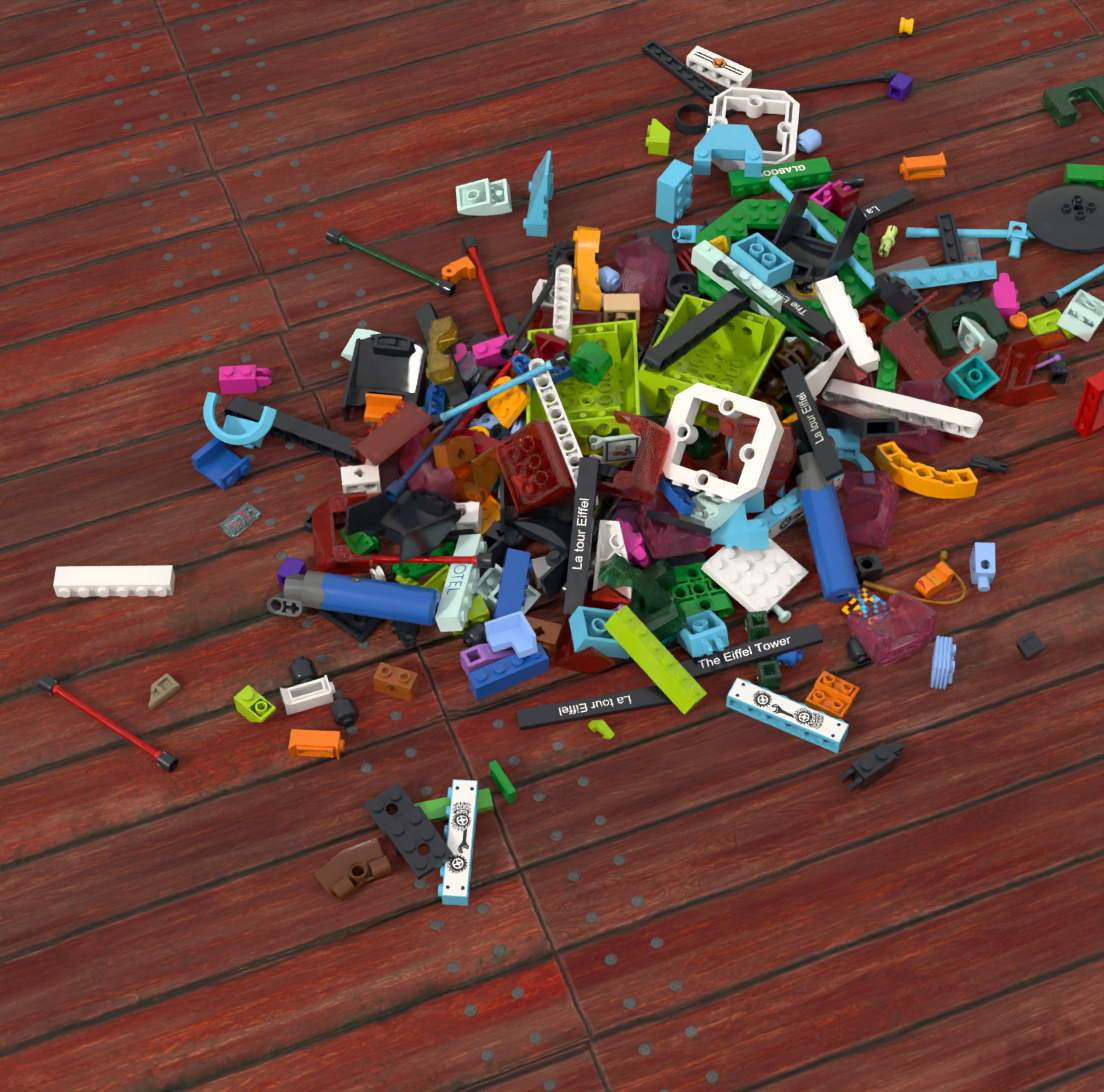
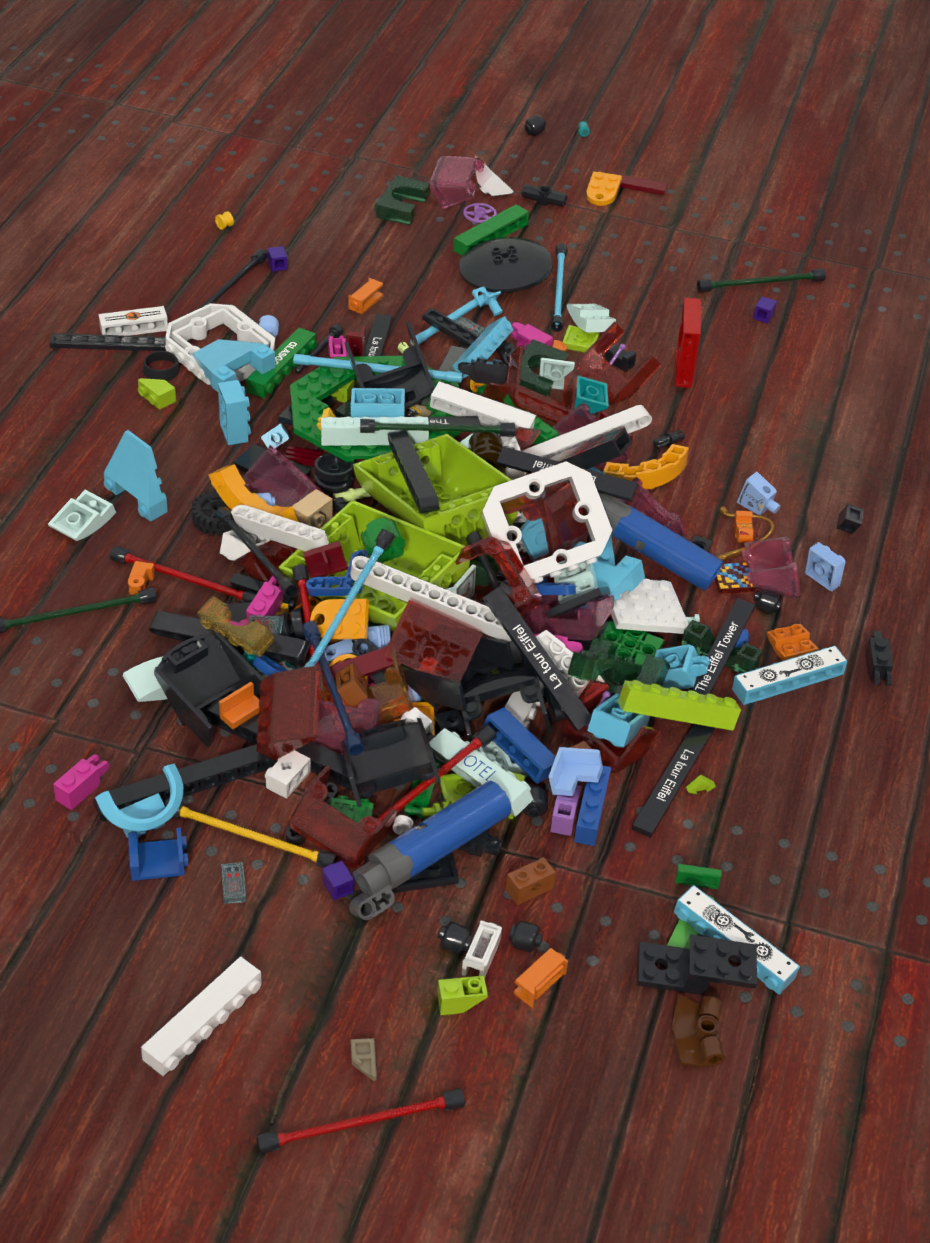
camera: 55 degrees left, 10 degrees down
(304, 552) = (321, 858): none -> yellow hose

